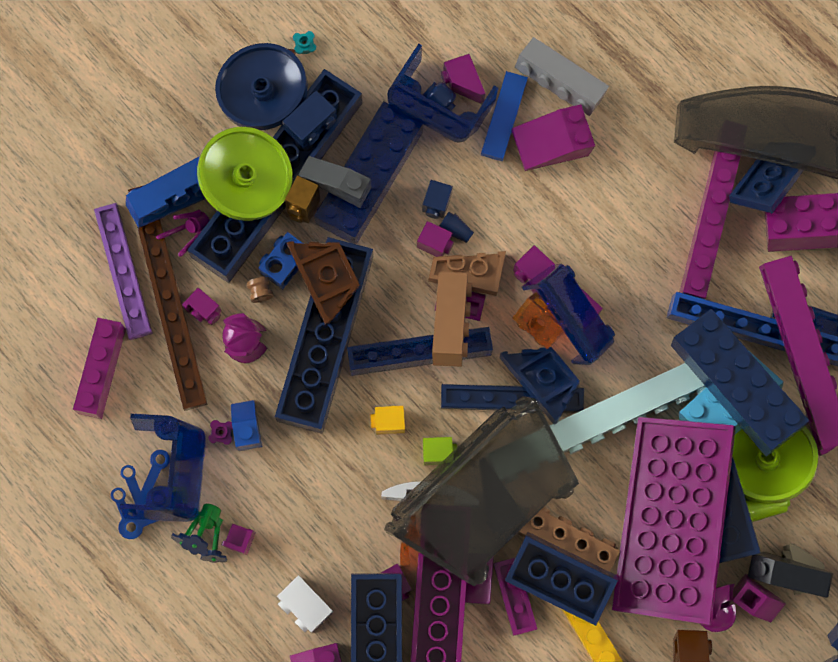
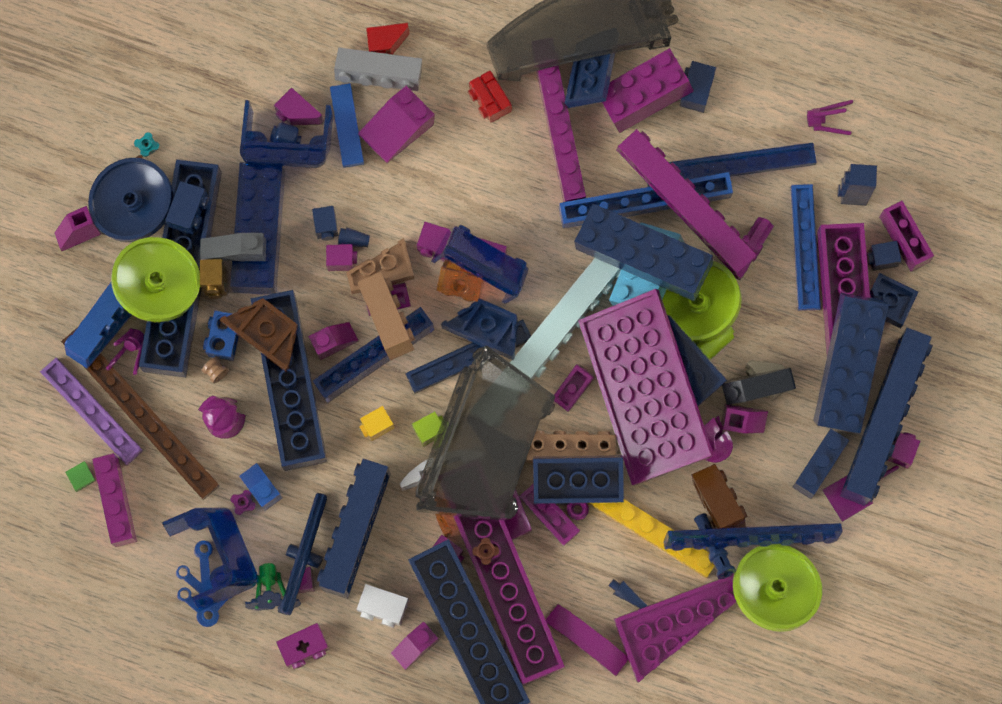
camera: 20 degrees left, 0 degrees up
(80, 328) = (80, 476): none -> bright green tile
(194, 598) = (310, 636): none -> magenta brick
(196, 90) = (76, 229): none -> magenta slope
(203, 307) = (175, 408): magenta brick -> none
(252, 515) = (303, 554): none -> dark blue axle
(253, 515) = (314, 559): none -> dark blue hinge
(315, 514) = (355, 528): none -> dark blue brick
(388, 316) = (333, 339): none -> magenta slope
(426, 601) = (485, 557): none -> copper plate
(544, 613) = (577, 516): none -> magenta plate
(585, 50) = (387, 38): none -> red slope
(600, 480) = (573, 387): none -> magenta slope
(657, 155) = (489, 96): none -> red brick

